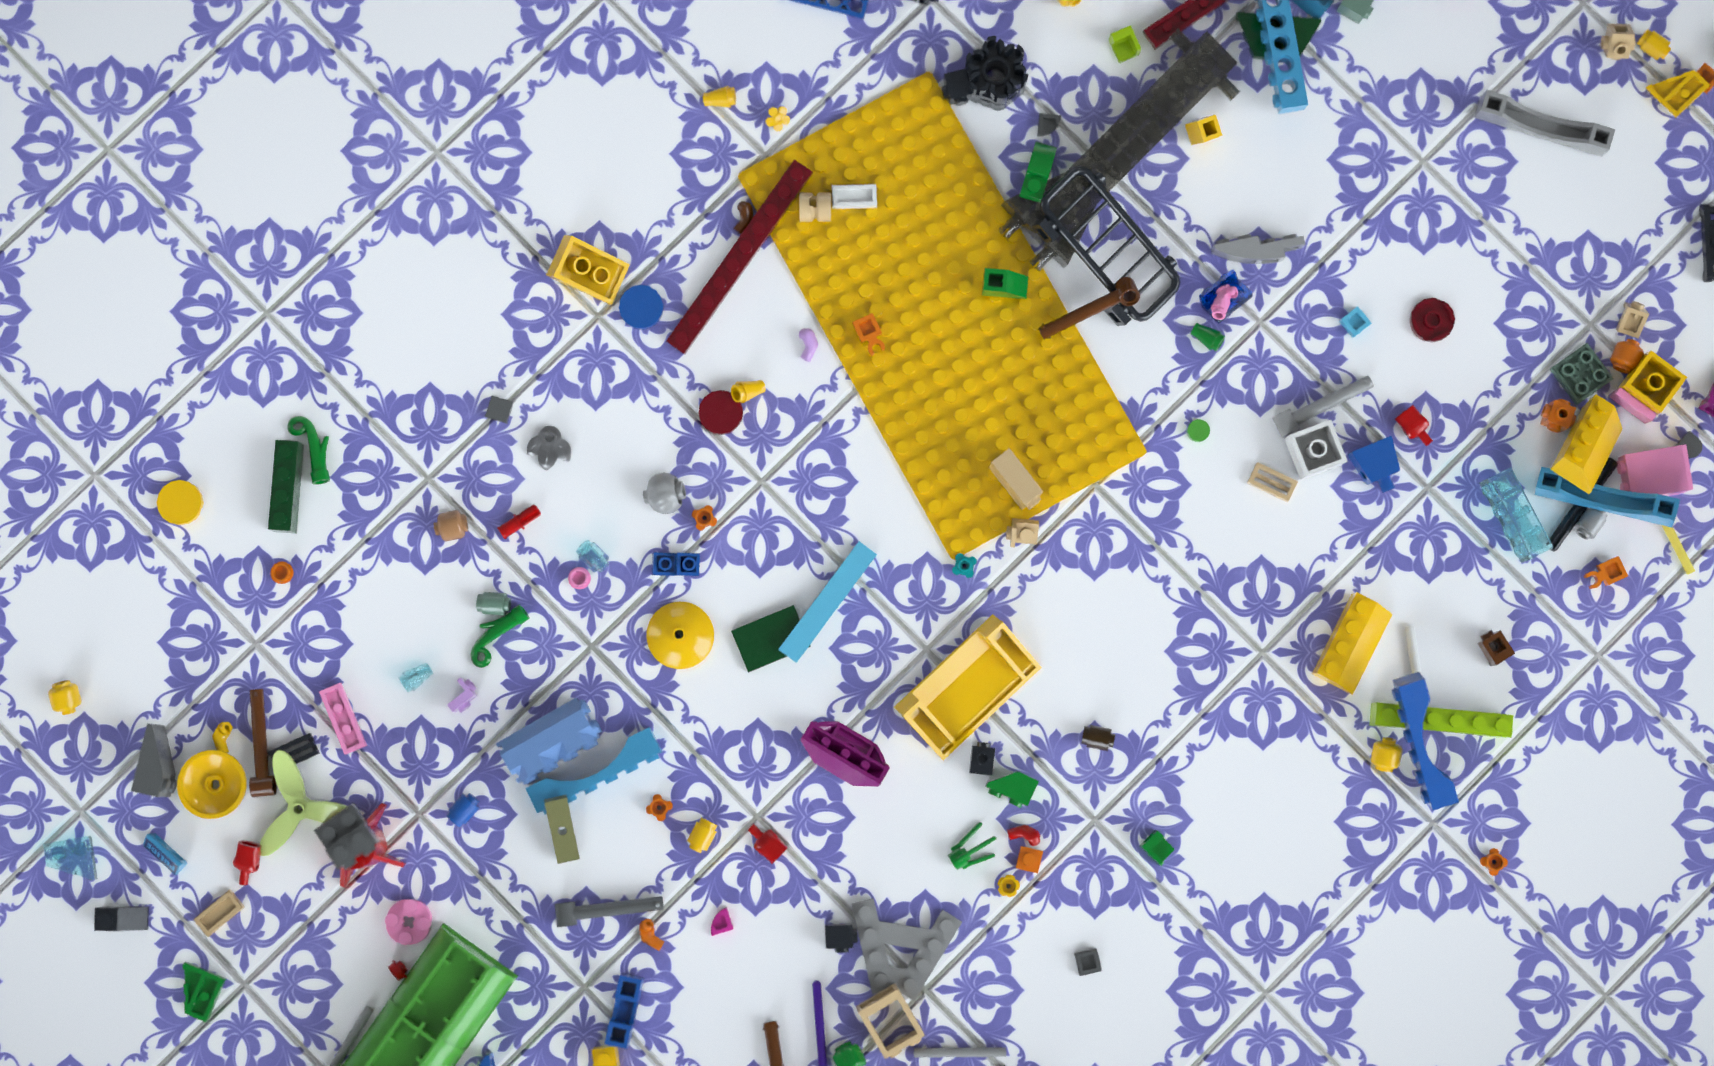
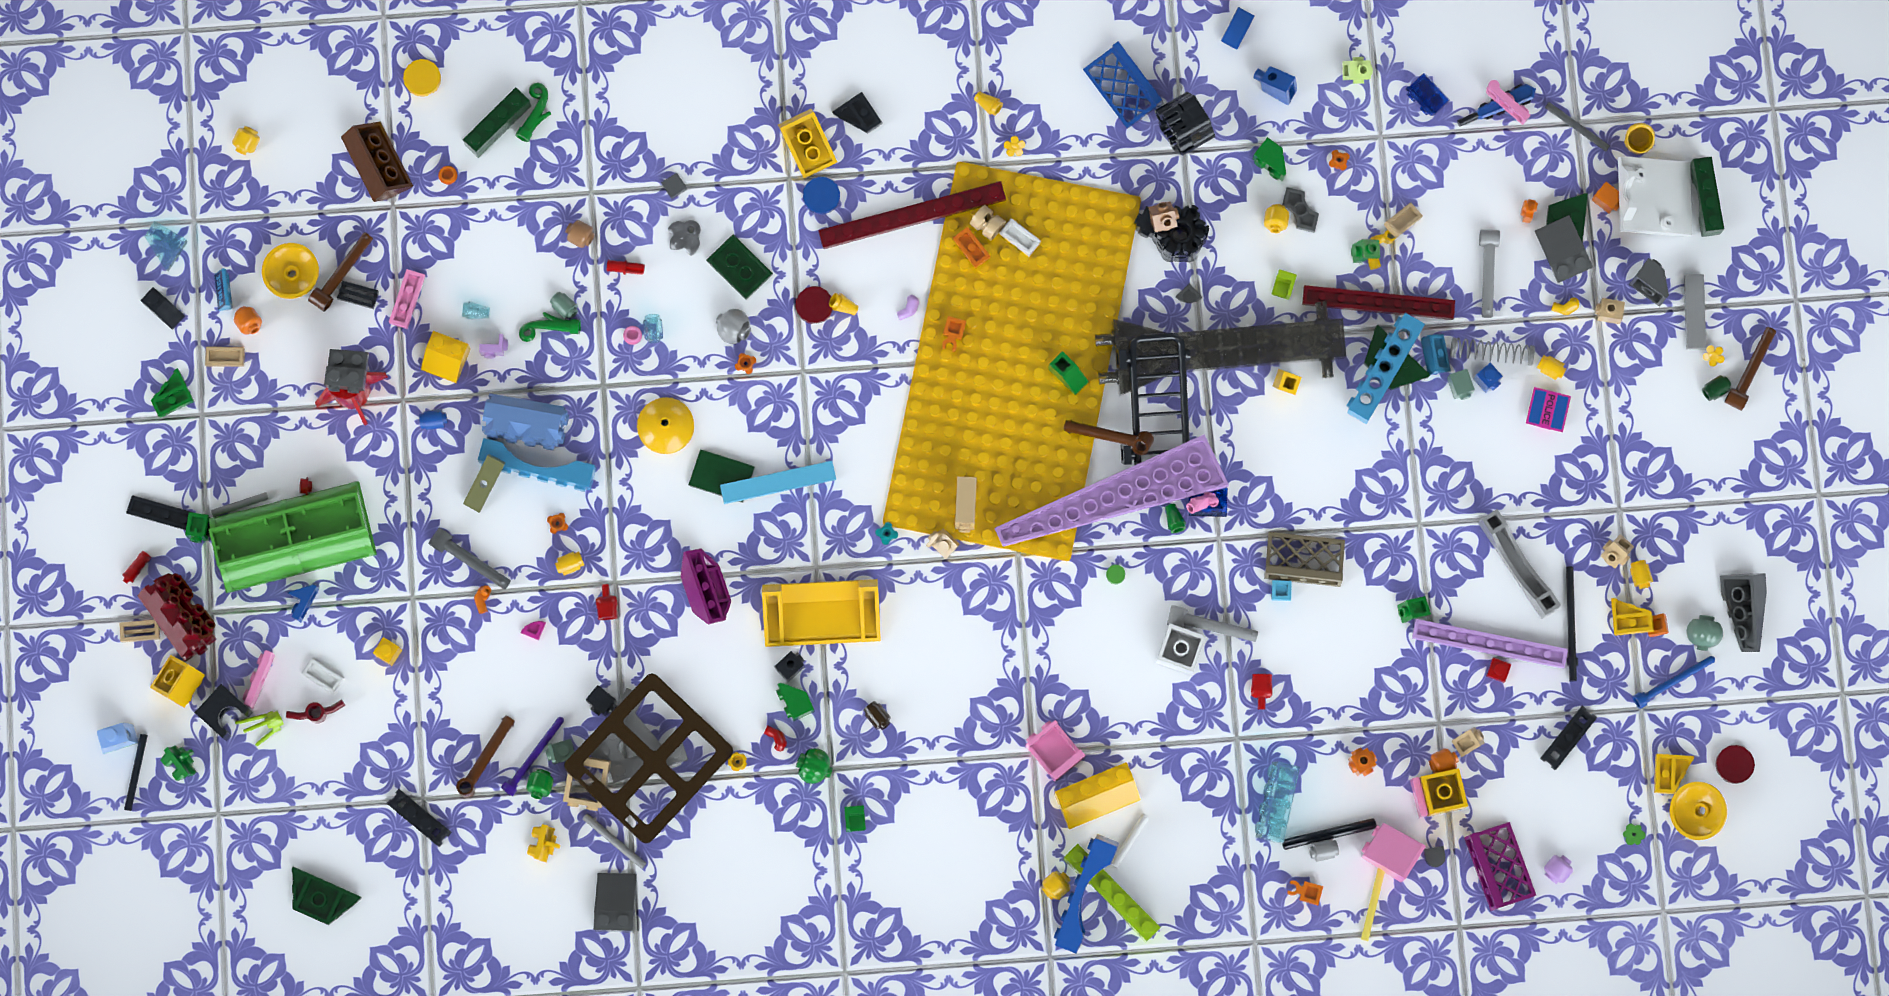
camera: 40 degrees right, 5 degrees down
(155, 765) = (265, 229): dark grey slope -> none
(204, 615) = (376, 161): none -> reddish brown slope
(211, 863) = (247, 320): none -> orange head
(220, 736) = (321, 246): yellow arm -> none
(247, 859) = (271, 337): red piece -> none
(293, 790) = (337, 317): yellowish green piece -> none
(409, 908) = (331, 453): bright pink plate -> none
(424, 742) = (445, 357): none -> yellow slope
(611, 204) = (859, 113): none -> black wing
(623, 434) = (739, 267): none -> dark green tile
(624, 1011) = (416, 638): blue arch -> none
(675, 564) = (701, 377): blue slope -> none
(746, 216) = (941, 190): reddish brown arm -> none
(819, 242) = (971, 247): none -> orange plate
(841, 1013) = (559, 751): none -> sand green bracket
(935, 952) = (653, 761): none -> dark brown window
(961, 857) = (724, 715): green plant -> none
(974, 68) = (1163, 216): none -> medium nougat brick
(1029, 859) = (765, 756): orange plate -> none
(1038, 172) = (1158, 313): green arch -> none
(1080, 831) = (814, 766): none -> green plant
(1088, 962) = (746, 854): dark grey tile -> none
(1167, 315) = (1159, 480): none -> lavender wing
(1250, 251) = (1249, 485): light grey slope -> none
(1258, 466) = (1128, 633): tan tile -> none
(1281, 635) = (1054, 750): none -> bright pink panel
(1367, 288) = (1304, 575): none -> dark tan fence
(1377, 463) = (1214, 692): blue torso -> none
(1432, 320) = (1334, 631): dark red tile -> none
(1485, 242) = (1413, 609): none -> green bracket
(1503, 648) = (1183, 883): reddish brown brick -> none
(1576, 216) = (1489, 643): none -> lavender plate
(1581, 373) = (1404, 749): sand green tile -> none
(1588, 444) = (1364, 796): yellow slope -> none
(1602, 233) = (1498, 670): none -> red plate
(1640, 506) = (1357, 856): dark azure arch -> none
(1659, 172) = (1572, 660): none -> black bar

